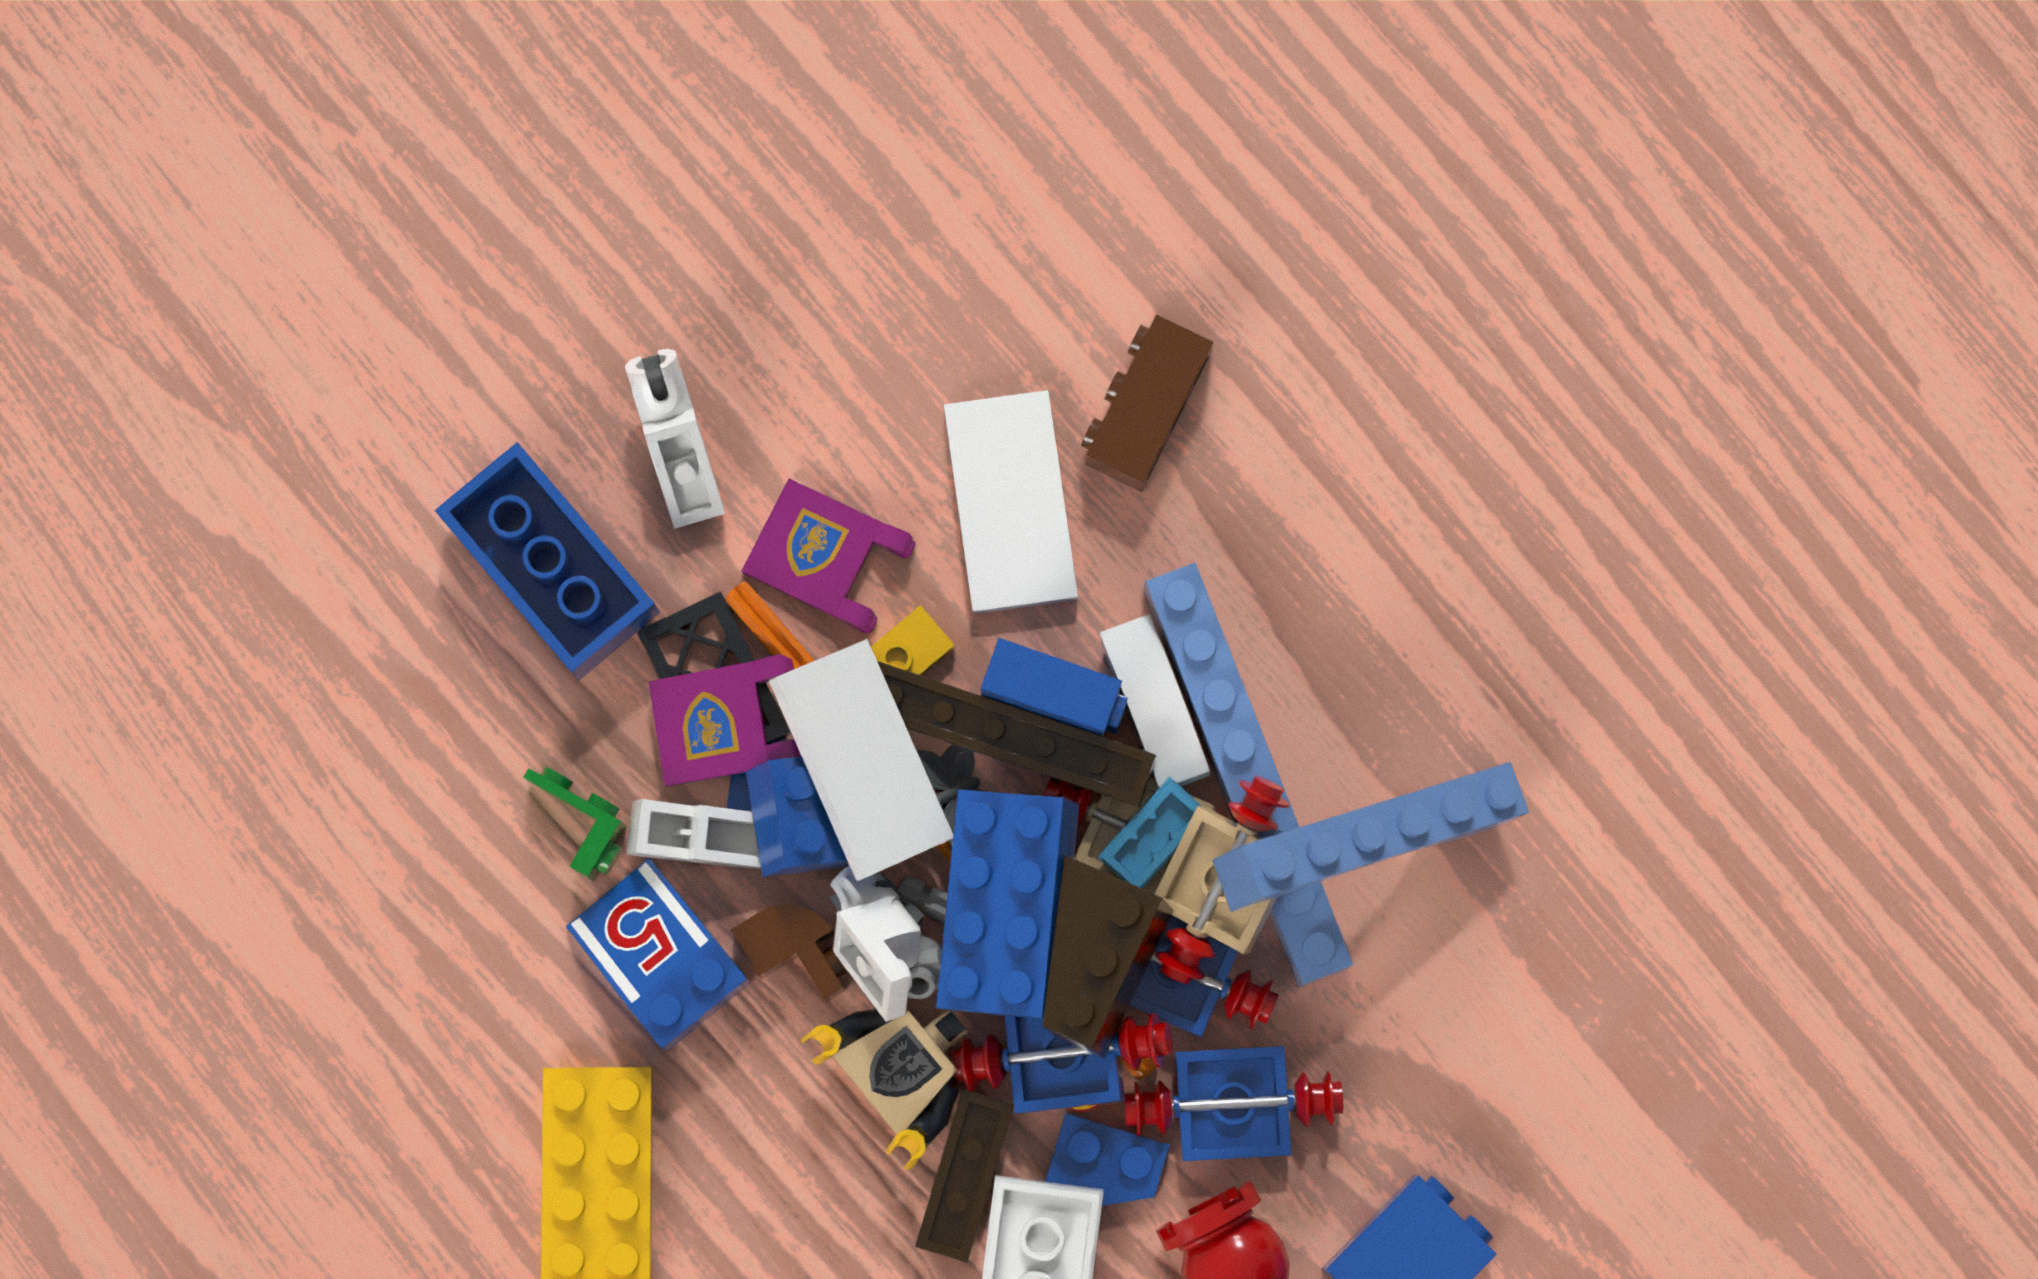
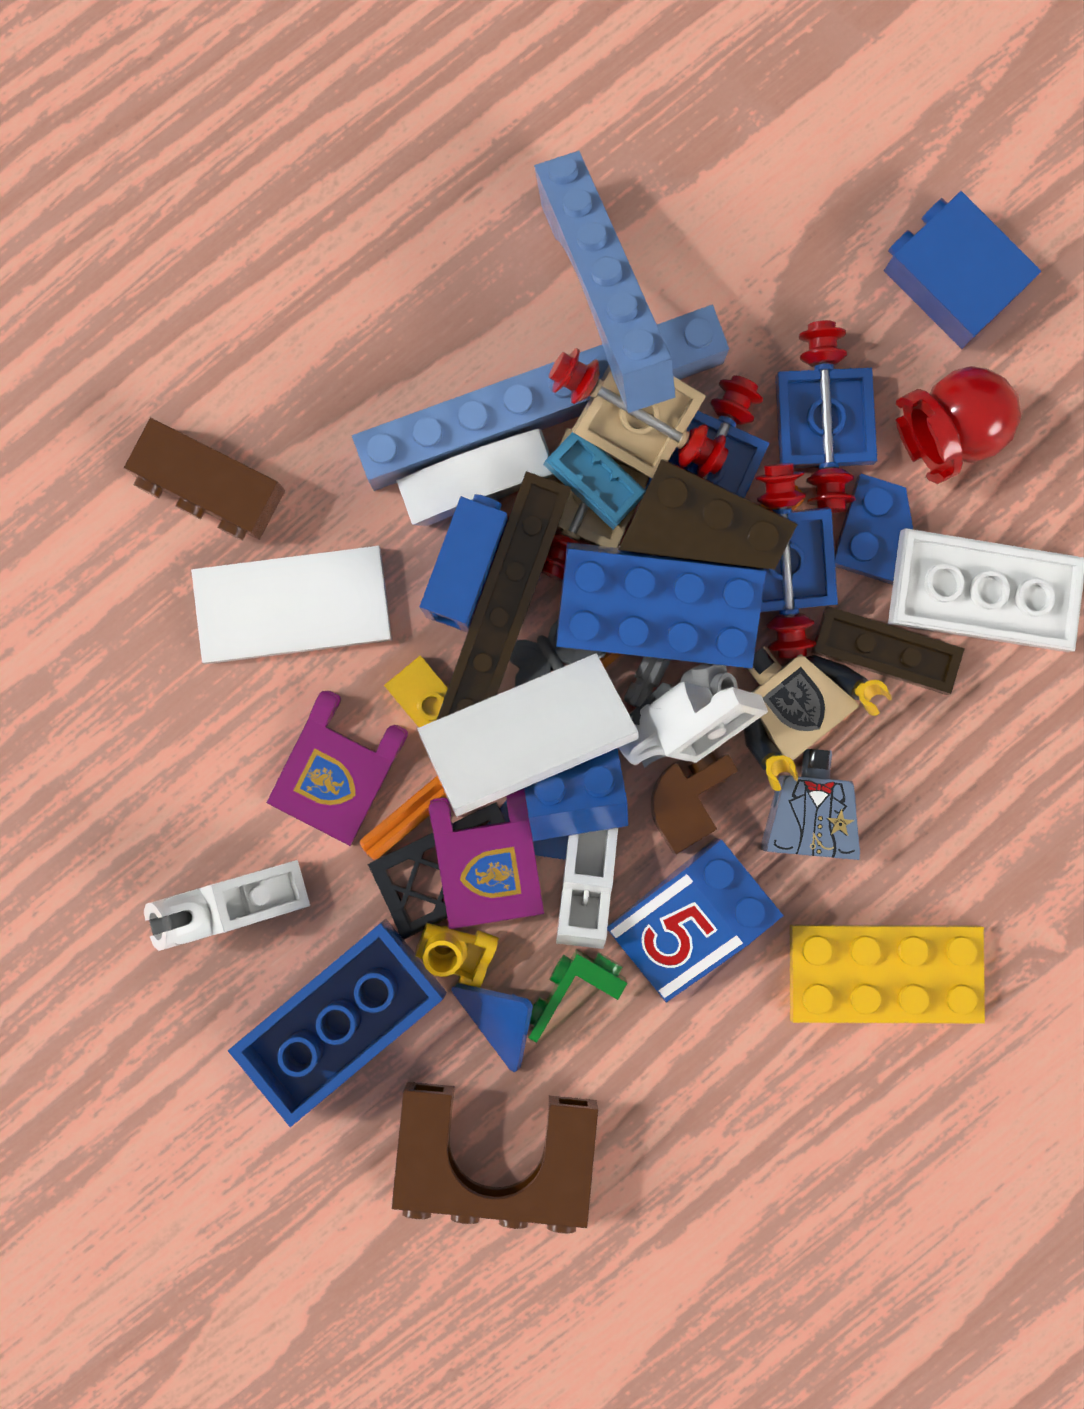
camera: 90 degrees left, 5 degrees up
(373, 665) = (551, 1194): none -> reddish brown arch
(549, 739) = (501, 1019): none -> blue piece
(619, 699) = (465, 957): none -> yellow plate
(778, 1089) = (813, 813): none -> sand blue torso

